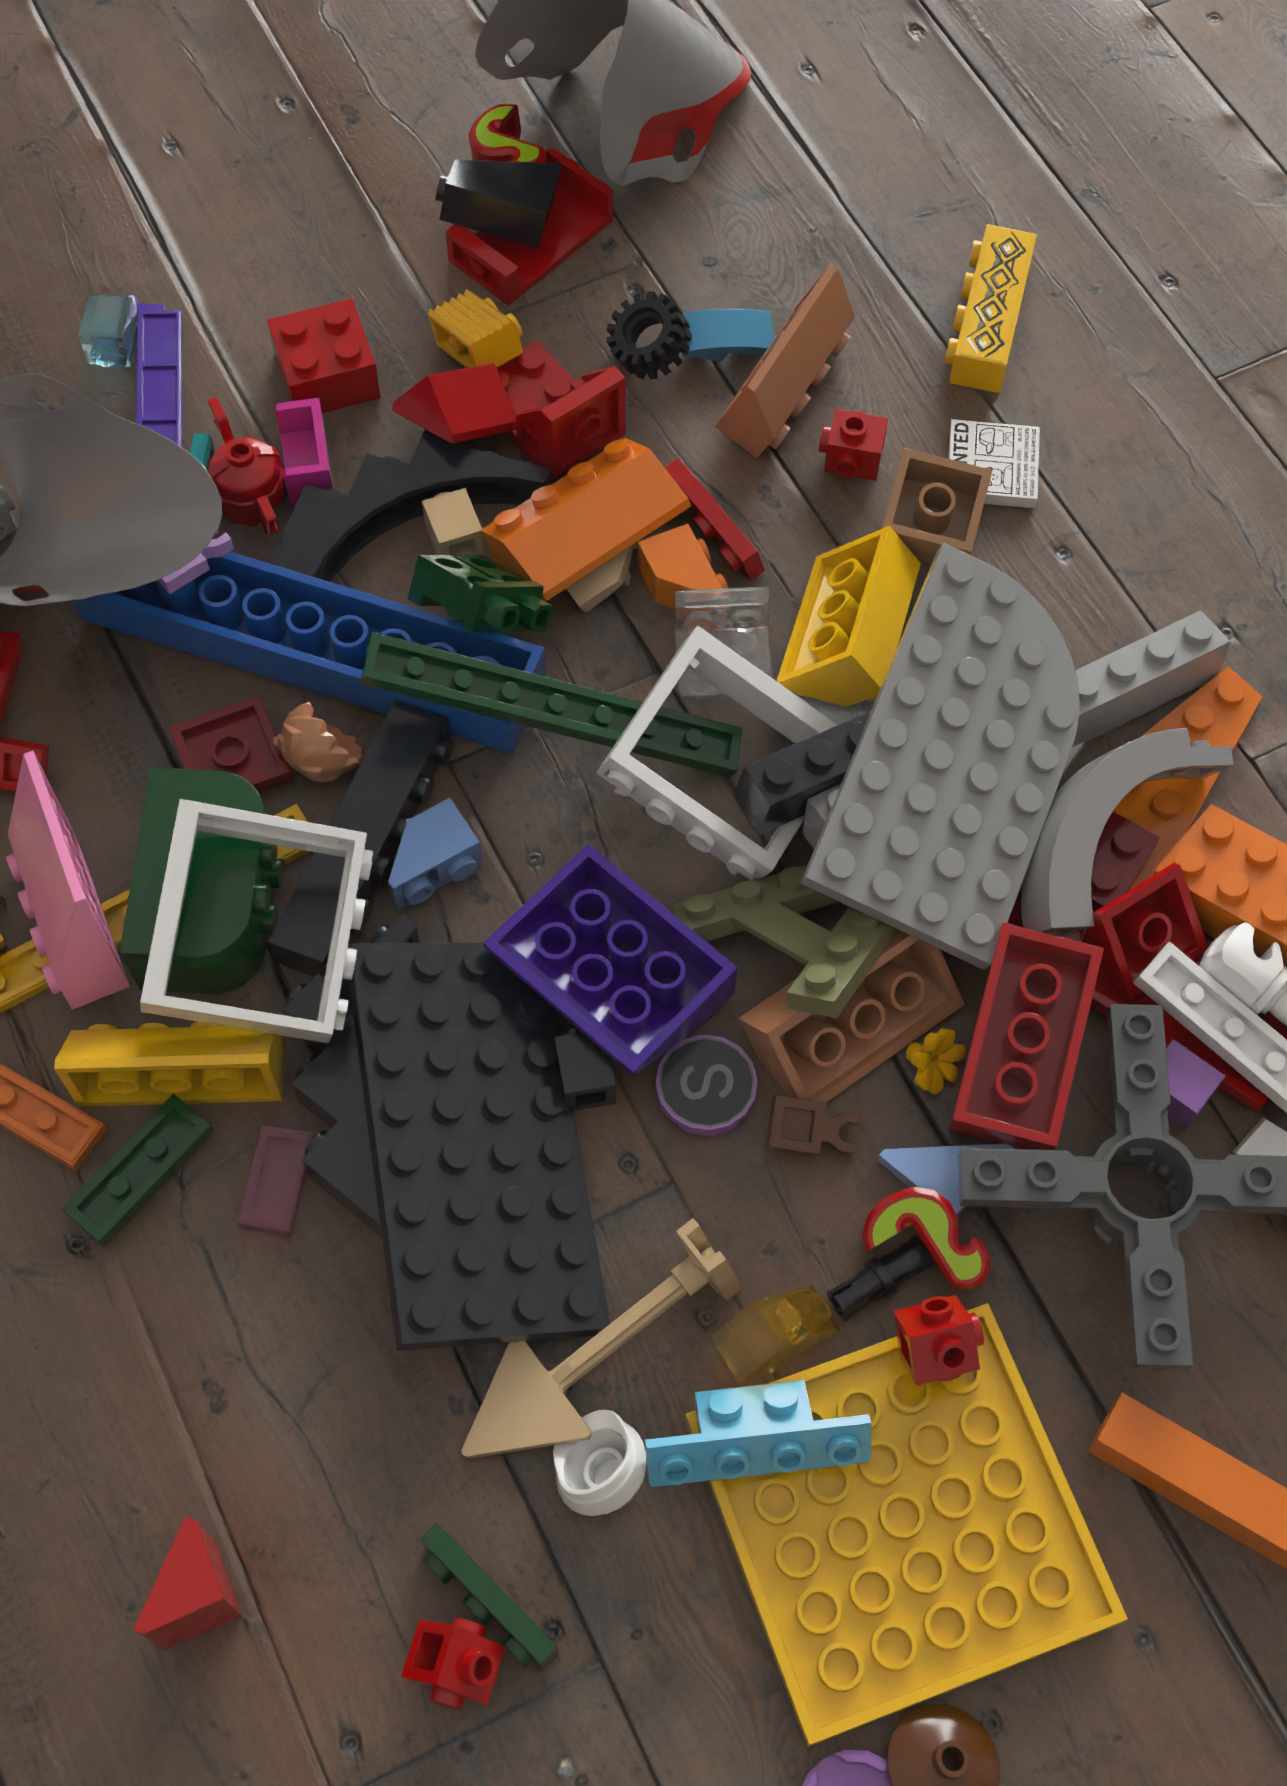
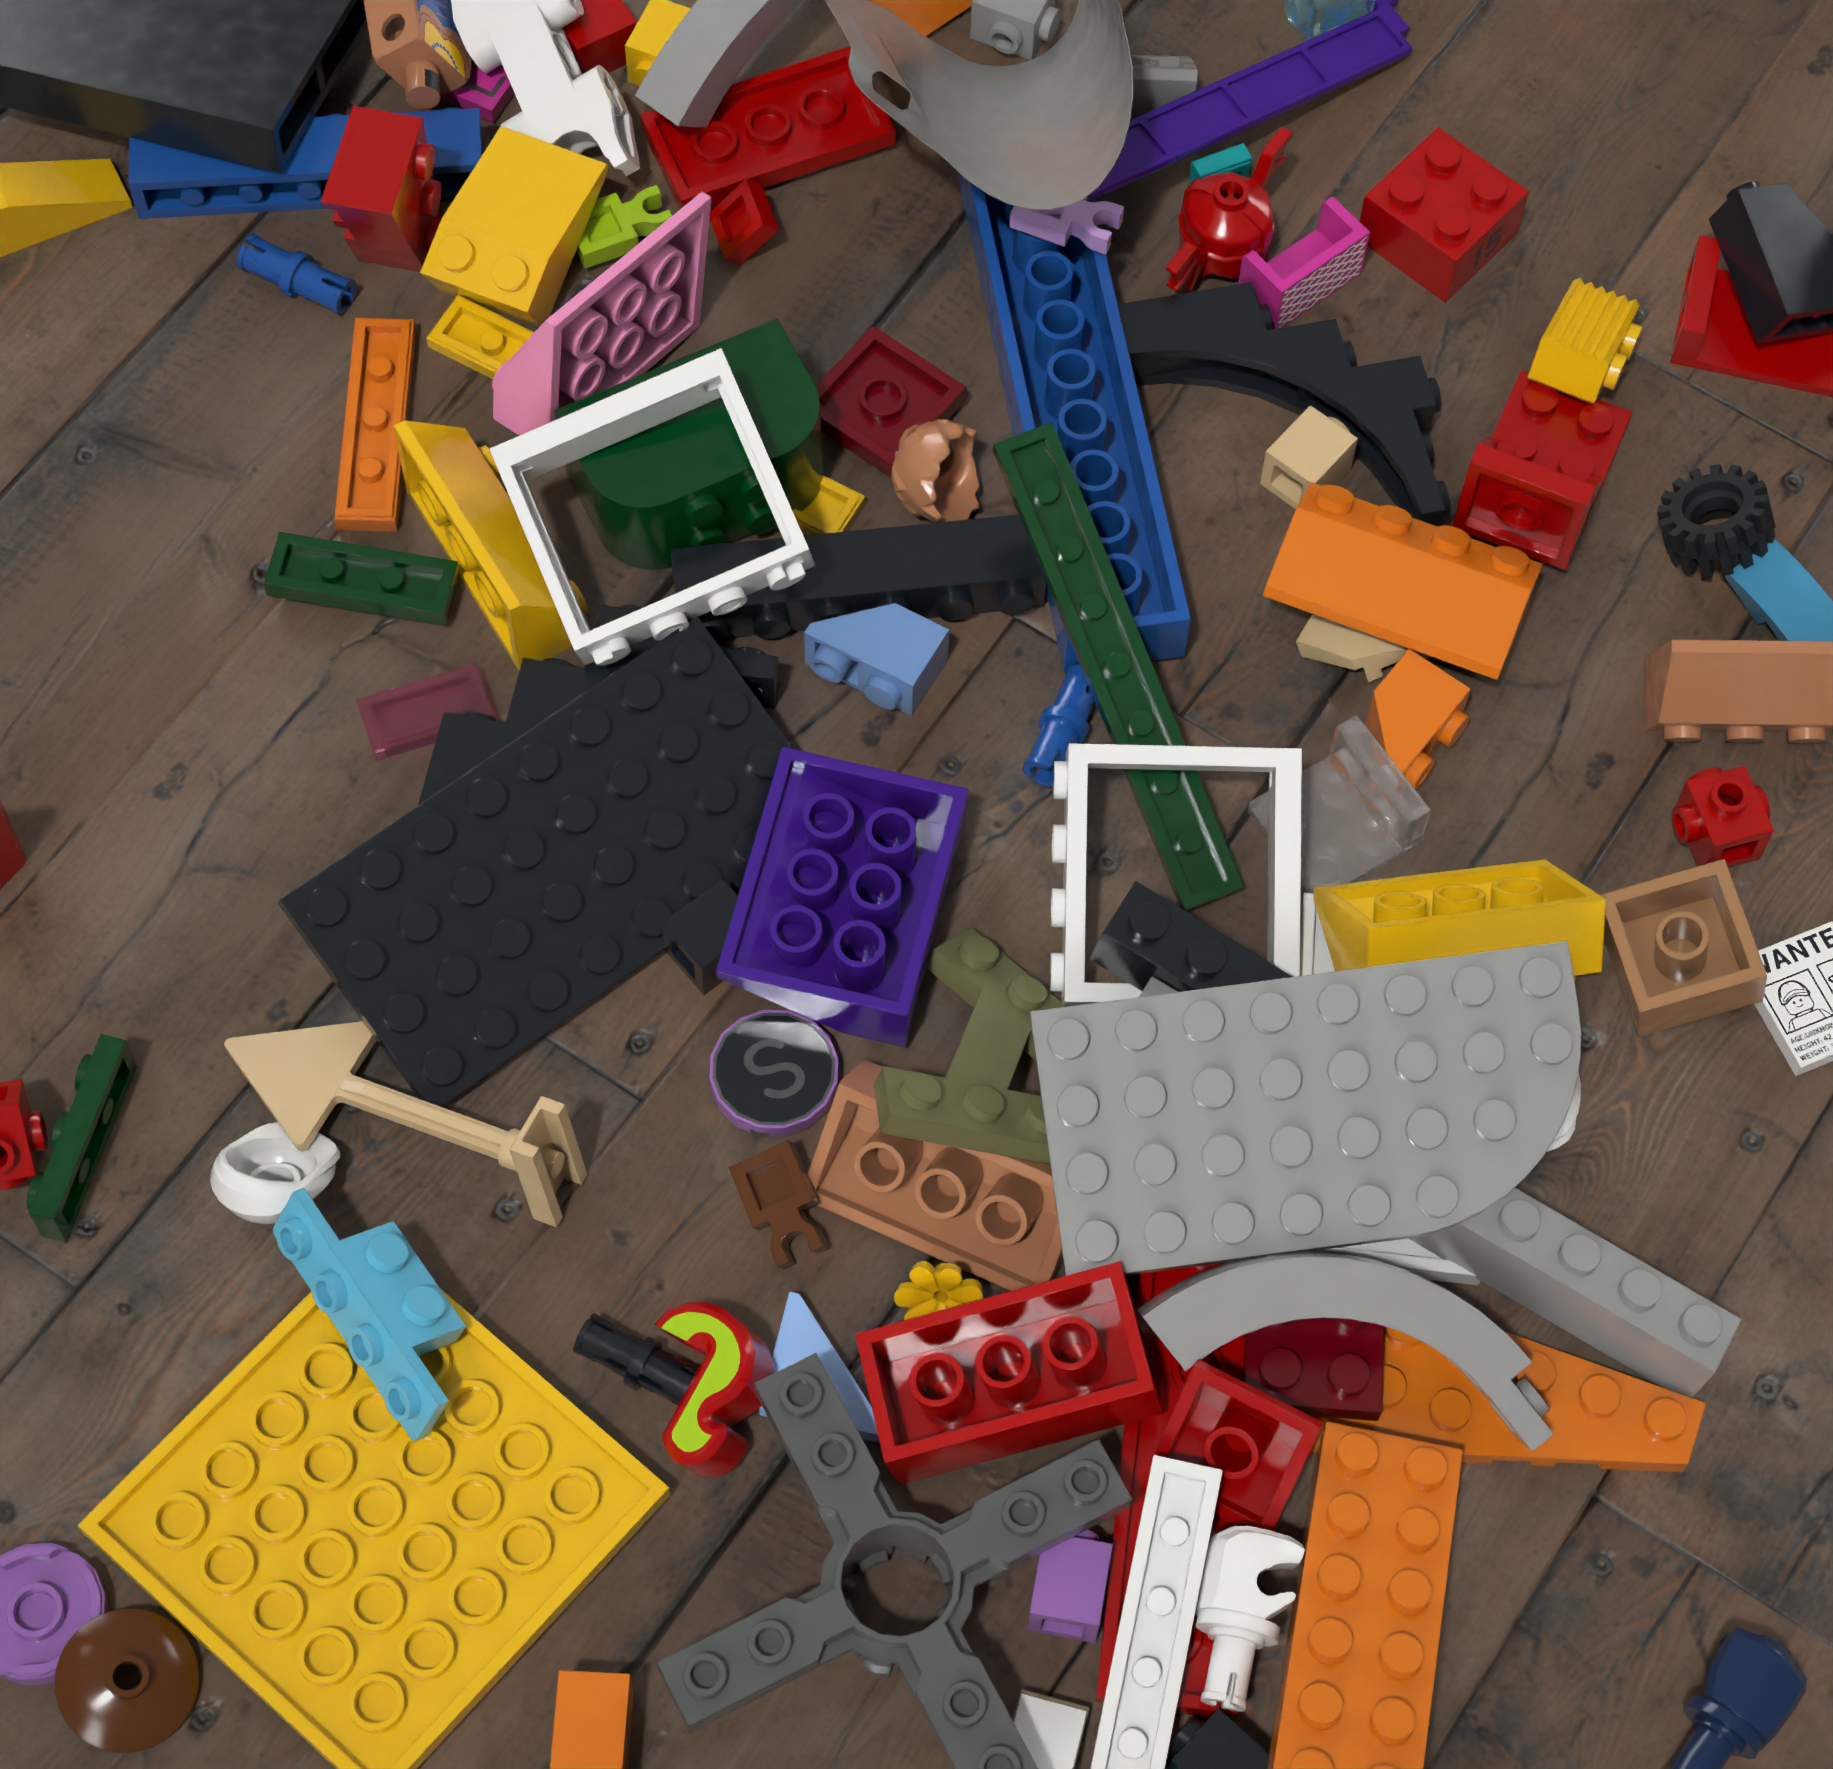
camera: 60 degrees right, 0 degrees up
(459, 404) = (1462, 375): red slope -> none
(480, 593) = (1214, 523): dark green hips -> none
(555, 772) = (1060, 725): none -> blue pin
(714, 522) = (1507, 720): red plate -> none
(774, 1332) = (516, 1279): clear yellow slope -> none
(938, 1339) = (577, 1437): red brick -> none

